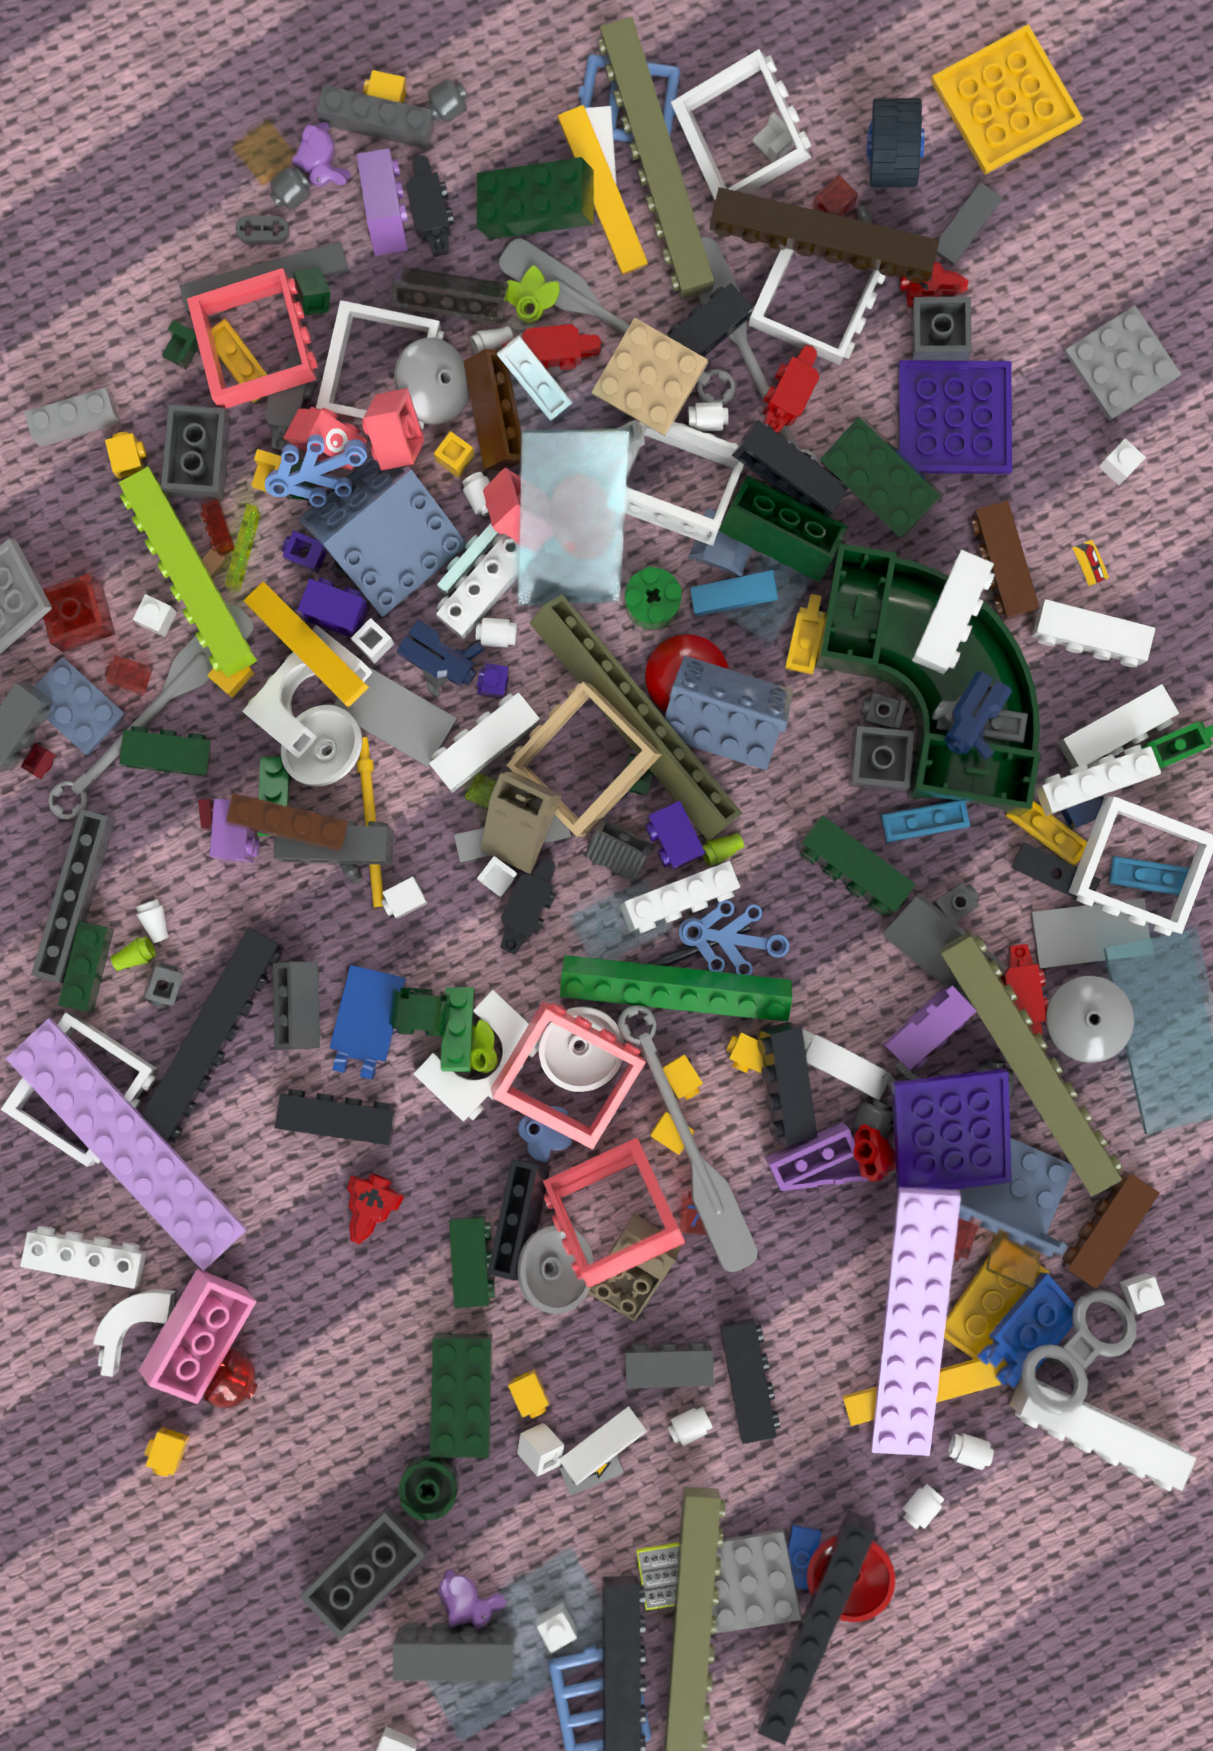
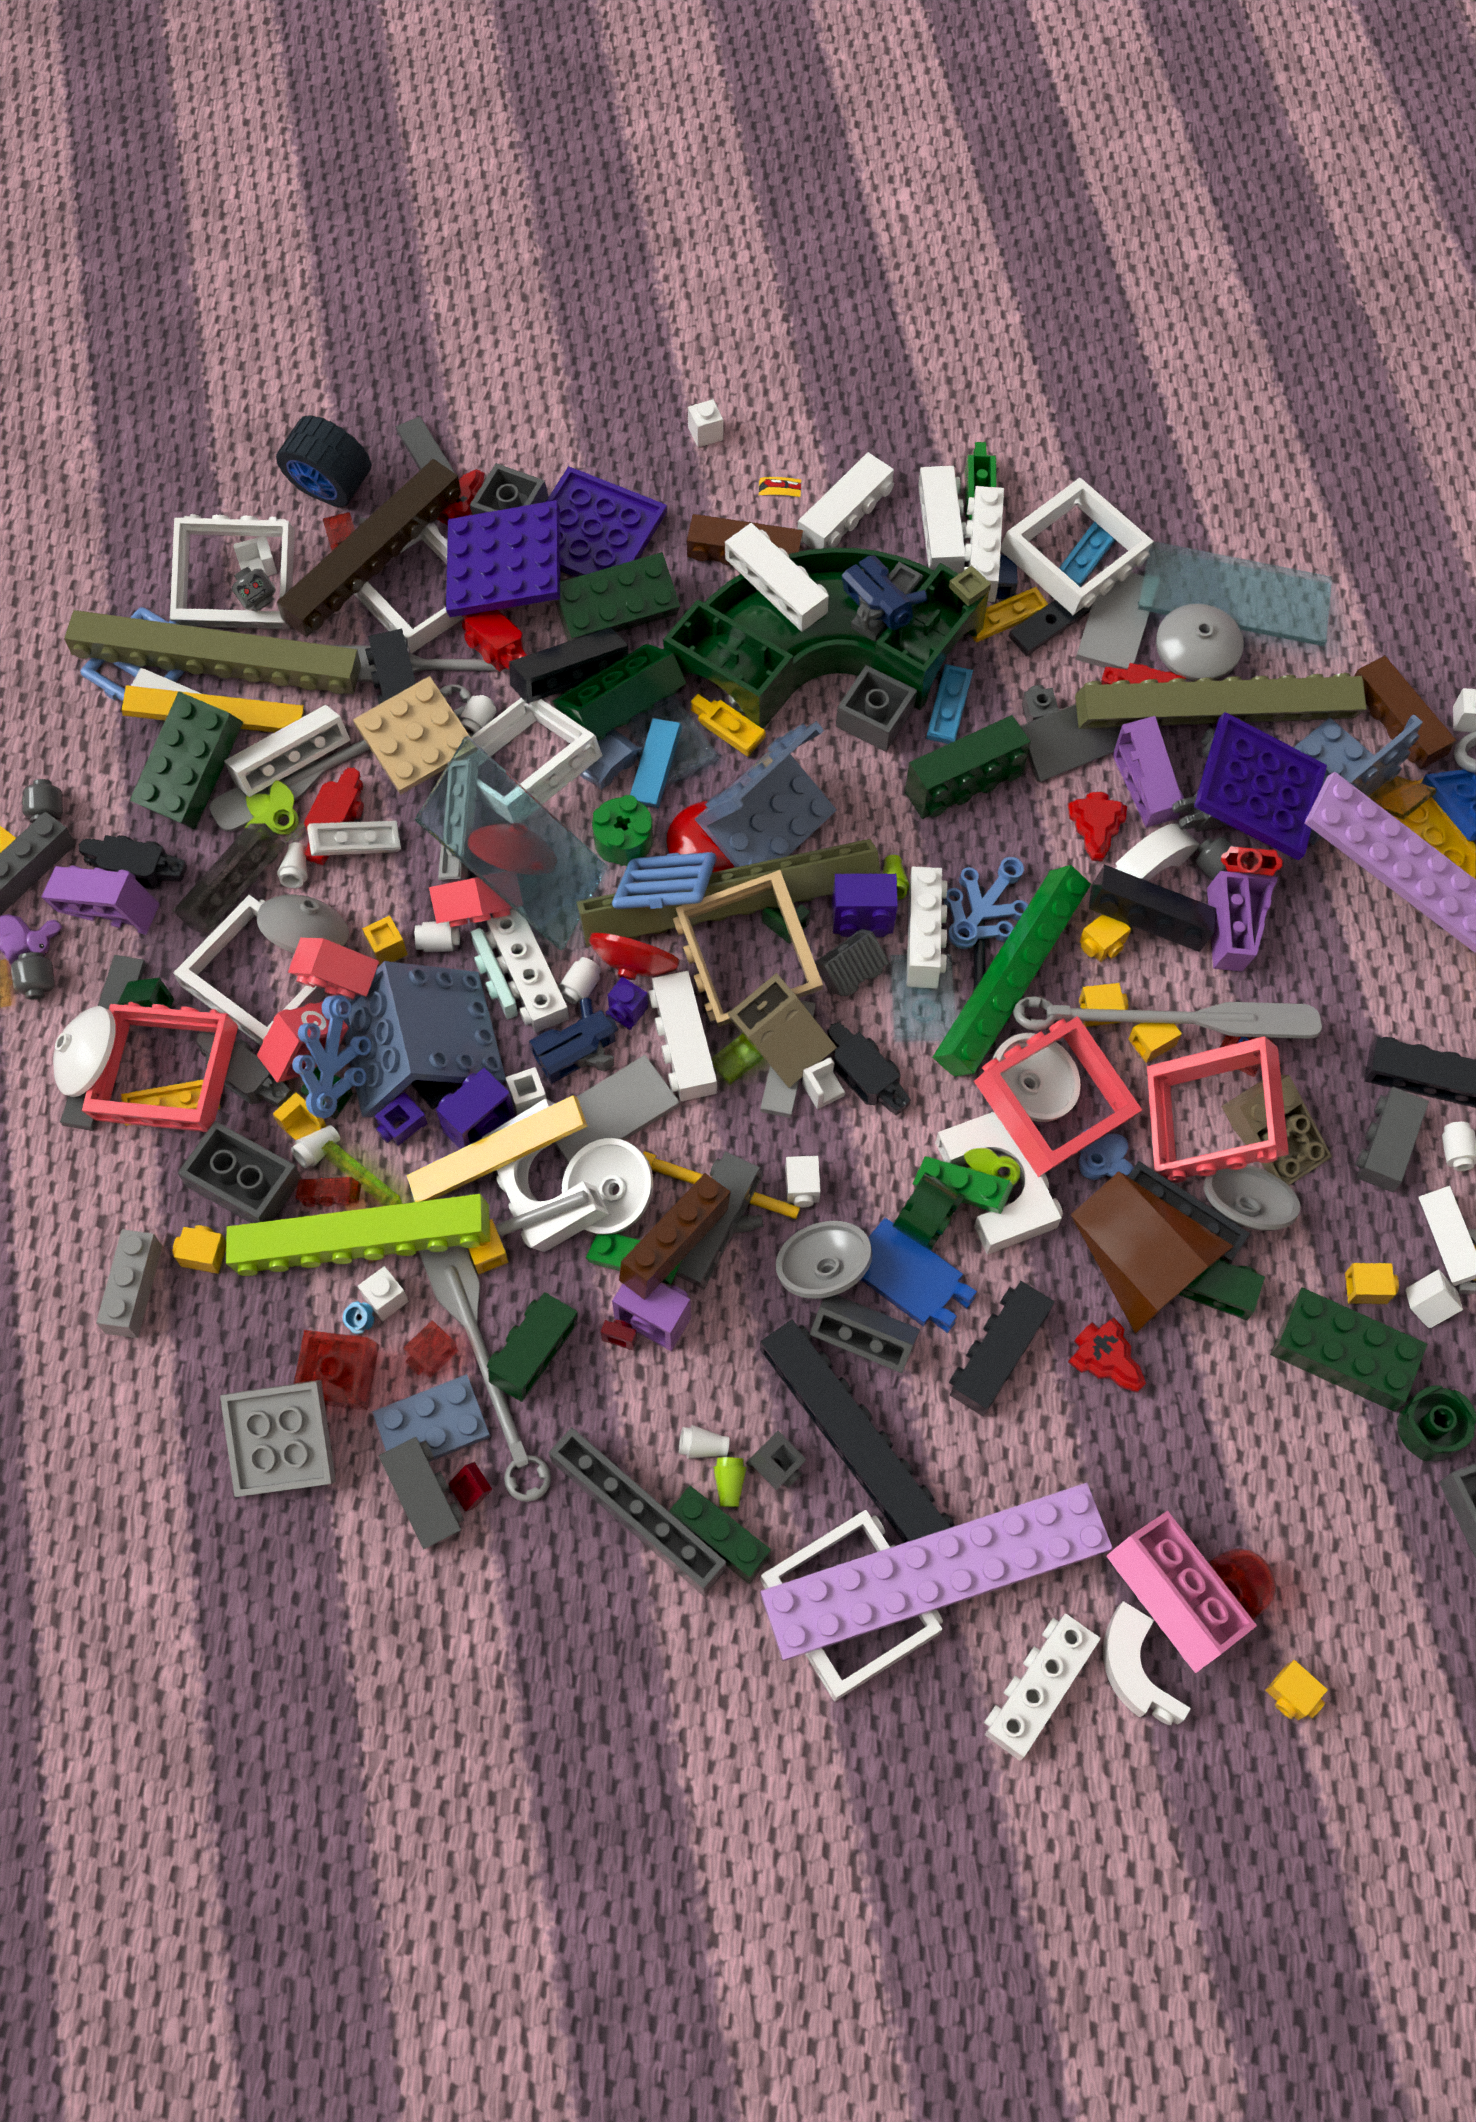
camera: 60 degrees left, 20 degrees down
(125, 602) = (350, 1317): none -> dark azure plate
(181, 346) = (120, 1146): dark green panel -> none
(238, 269) = (83, 1050): none -> white dish
(250, 493) = (309, 1148): none -> white cone
(262, 223) = (55, 1020): dark grey beam -> none
(268, 707) = (542, 1213): none -> light grey bar
(340, 932) = (824, 1259): none -> light grey dish
(470, 1200) = (1144, 1246): none -> reddish brown wedge
(494, 410) = (364, 887): reddish brown brick -> none
(529, 666) = (632, 956): none -> red dish
(591, 275) = (287, 750): none -> white brick
(613, 689) = (696, 885): none -> medium blue bar
(726, 158) = (253, 589): none -> dark grey head
(861, 1001) = (1097, 821): none -> red rock
(866, 358) = (503, 559): none -> dark purple plate
(874, 718) = (831, 690): dark grey brick -> none
(1006, 99) = (336, 378): yellow plate -> none
(1025, 790) = (970, 585): none -> olive tile
(1122, 363) = (617, 393): light grey plate -> none

